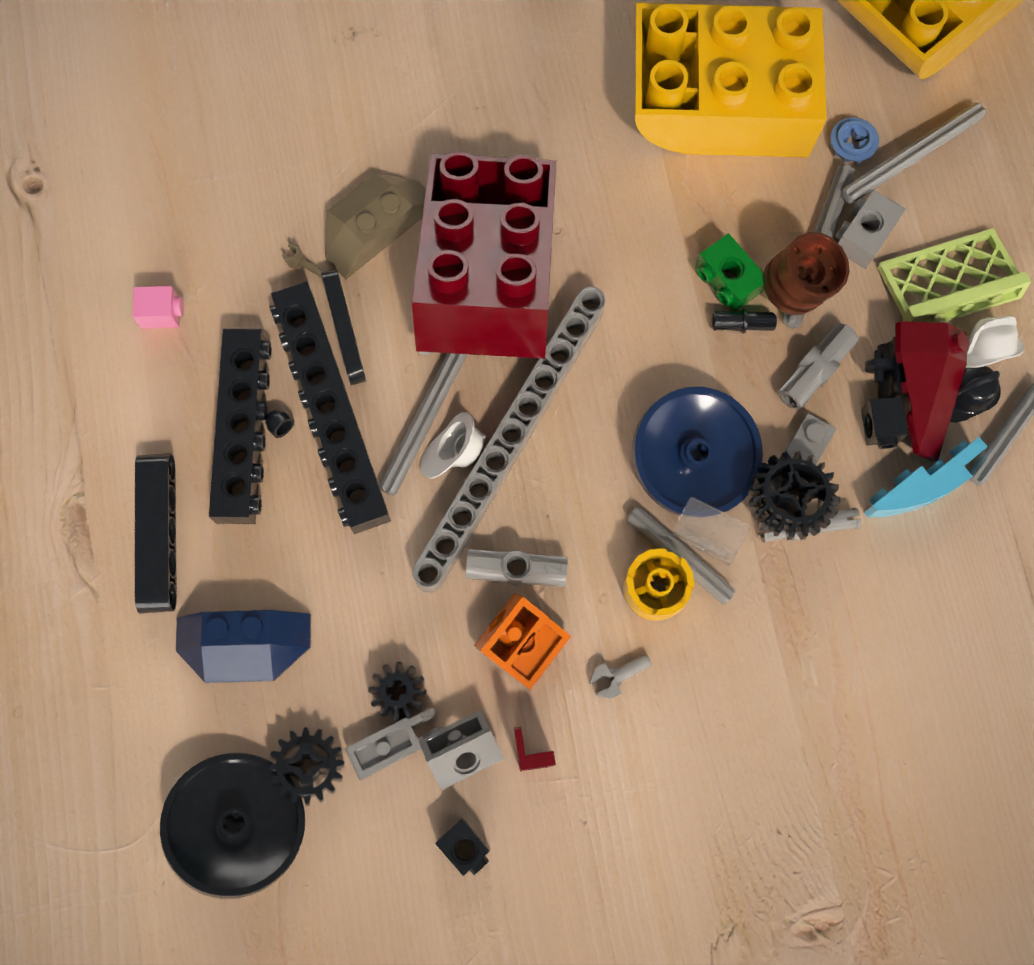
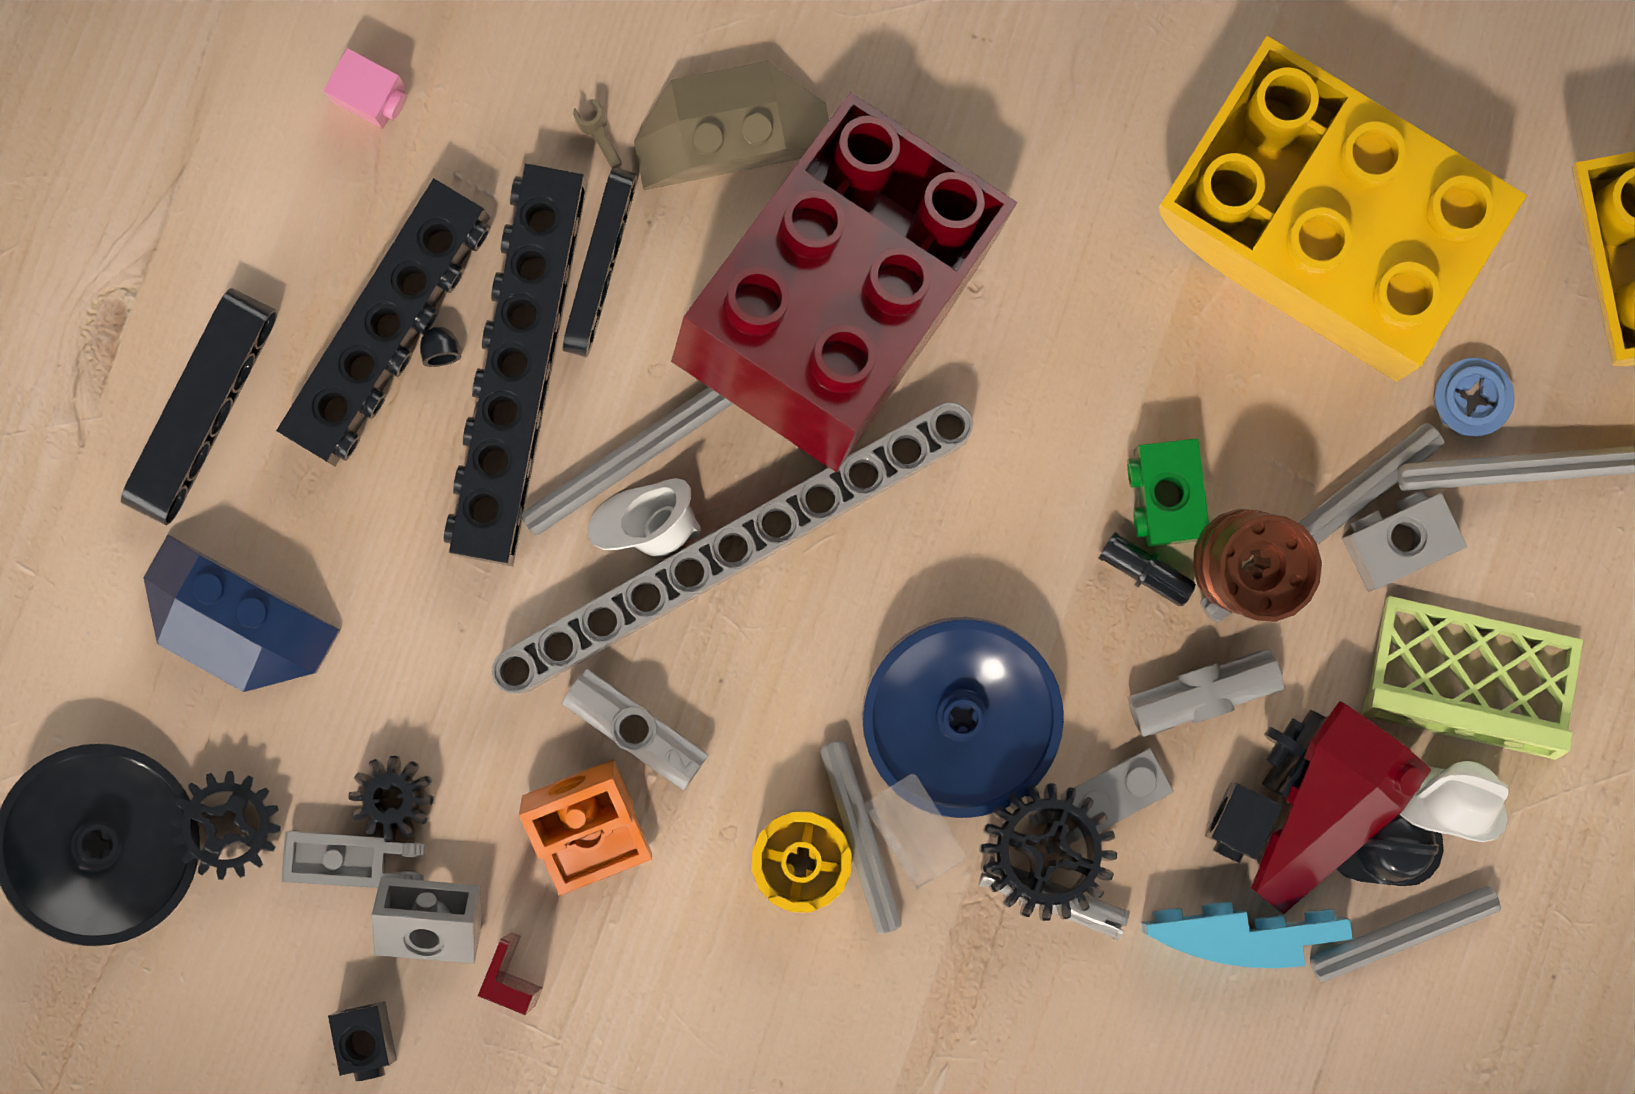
camera: 35 degrees right, 10 degrees up
(619, 675) = (685, 943): light grey bar -> none

